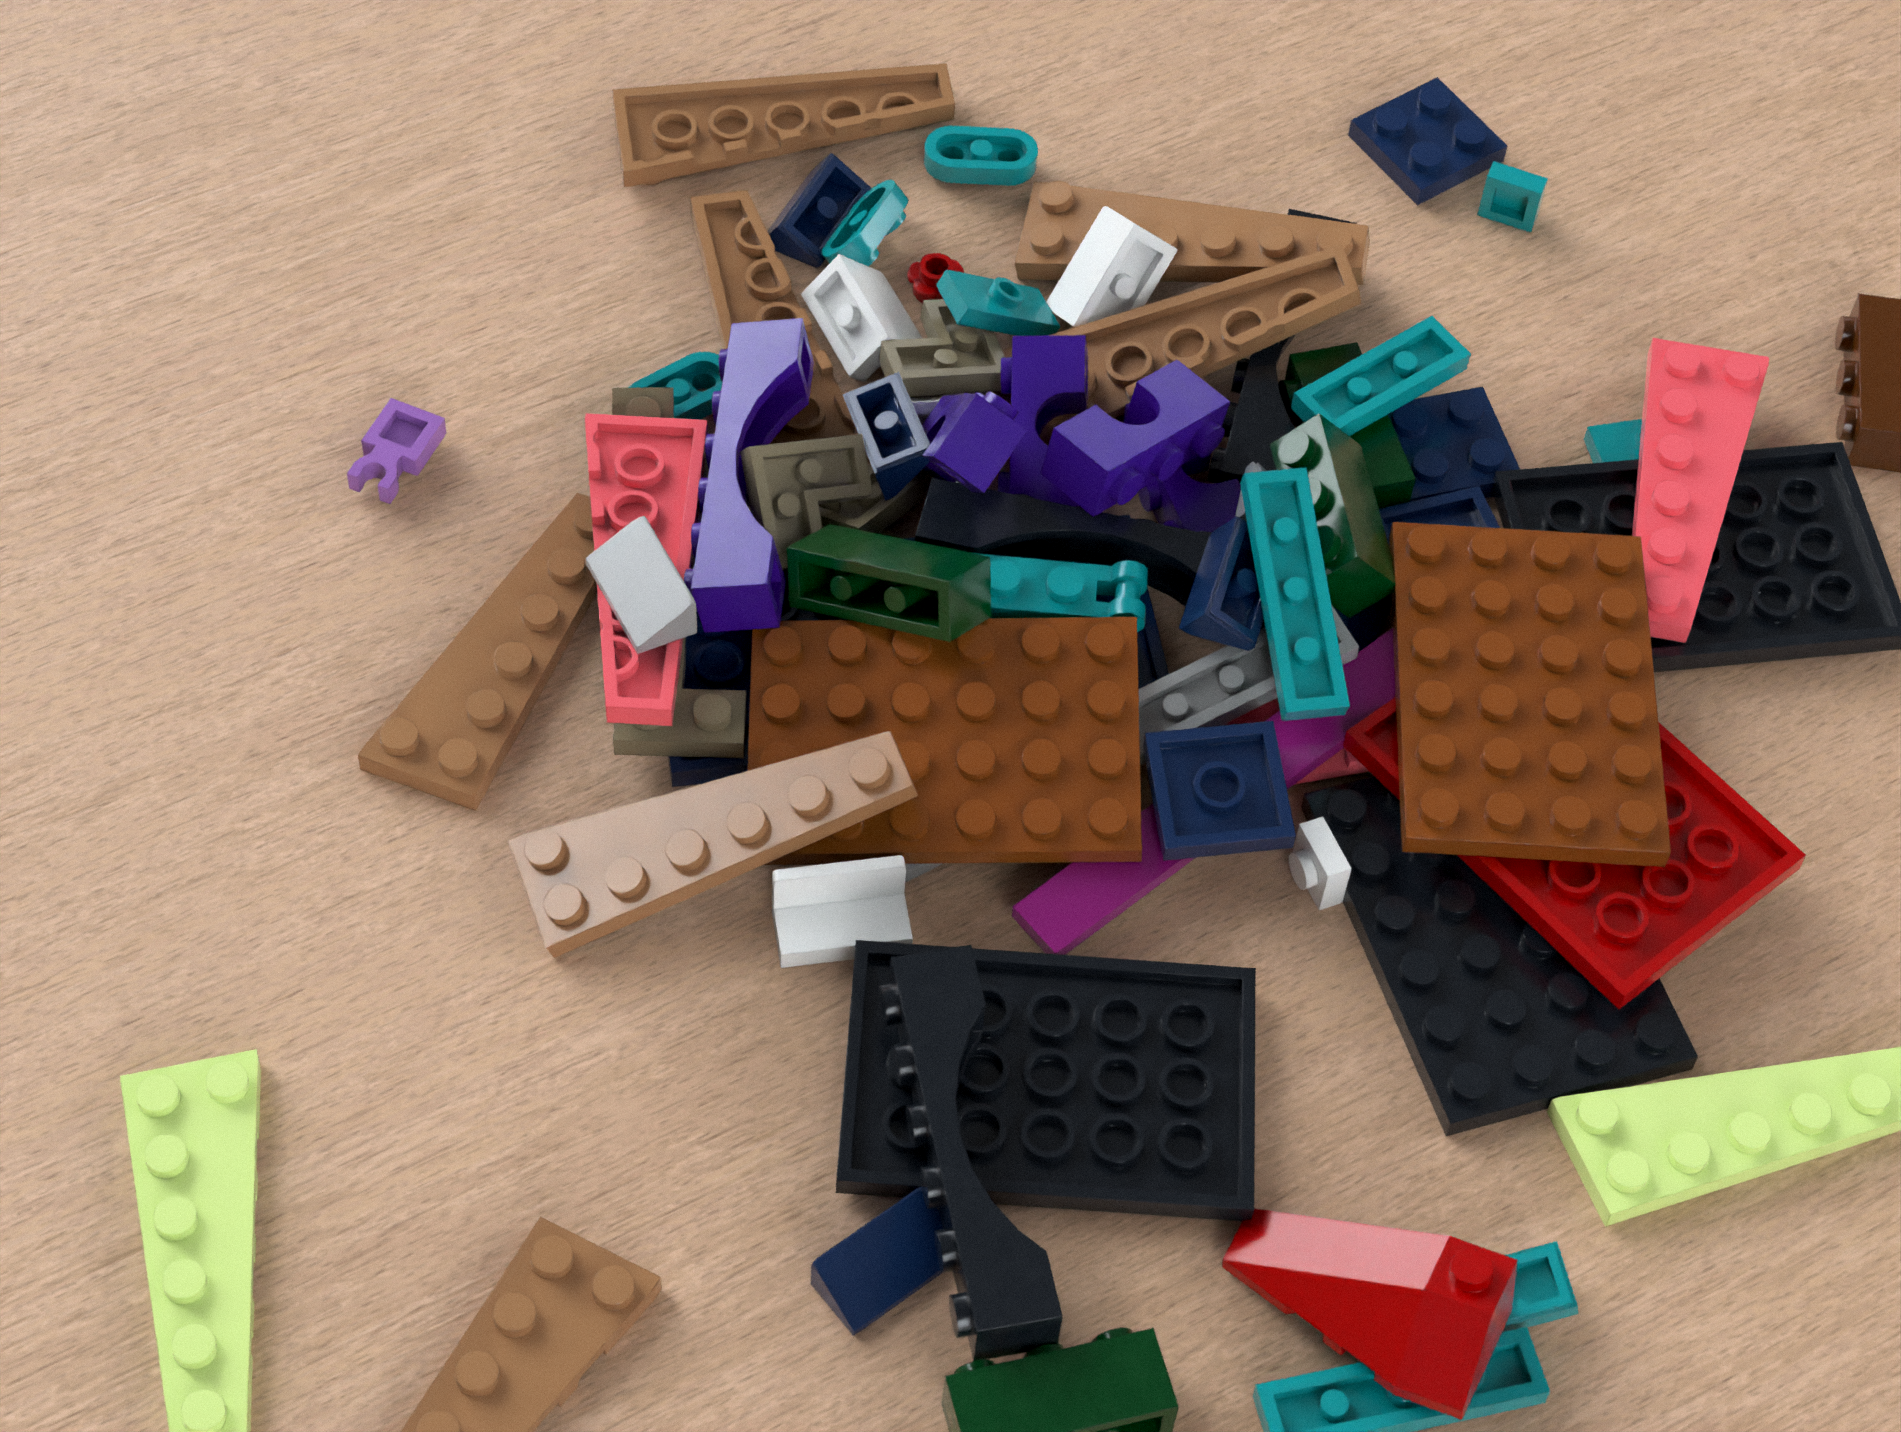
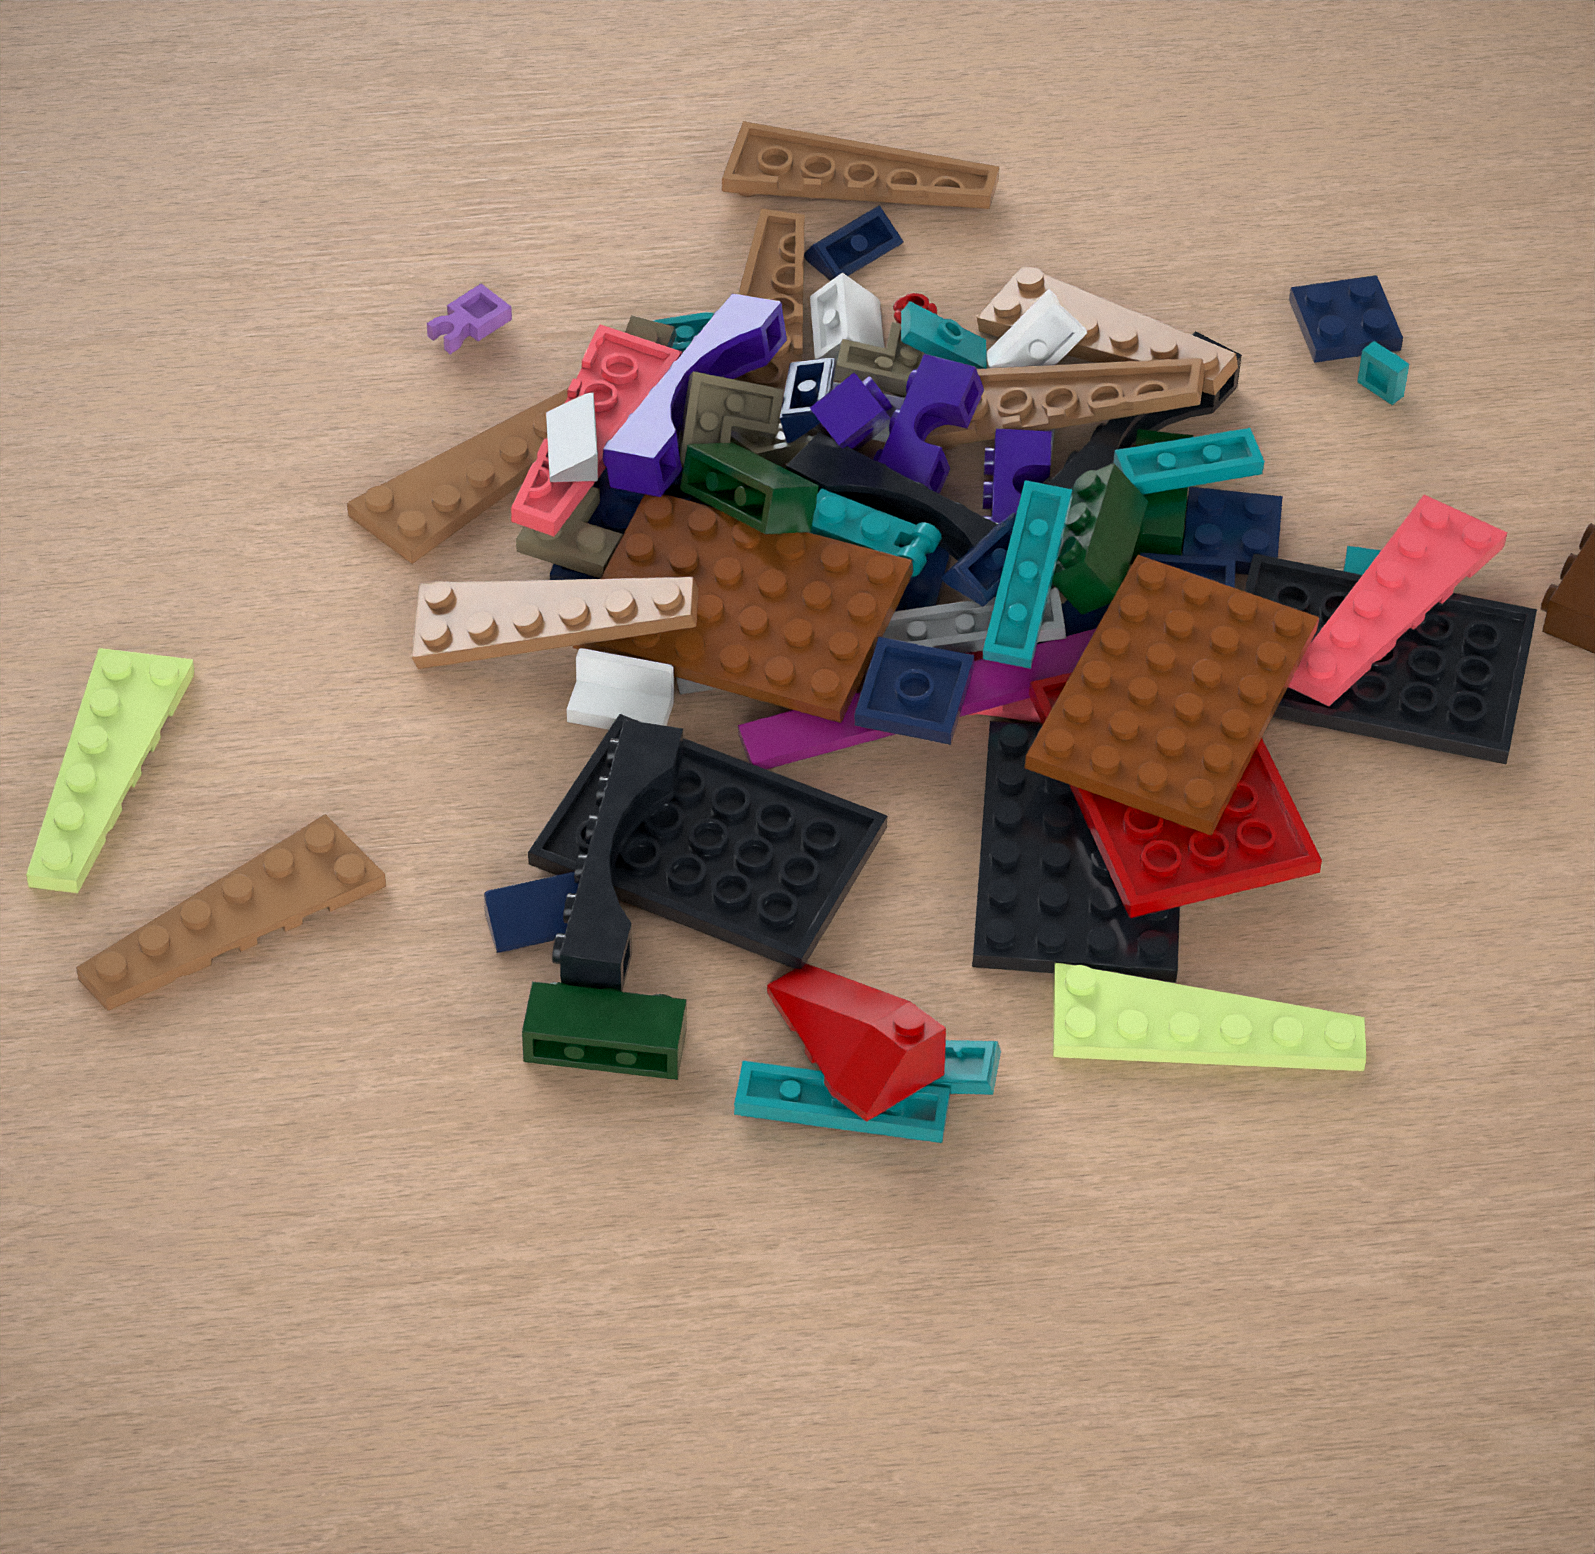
camera: 25 degrees right, 5 degrees down
(867, 224) = (893, 257): teal plate -> none
(980, 155) = (992, 237): teal plate -> none
(1166, 425) = (946, 454): dark purple arch -> none
(1319, 864) = (971, 767): white plate -> none

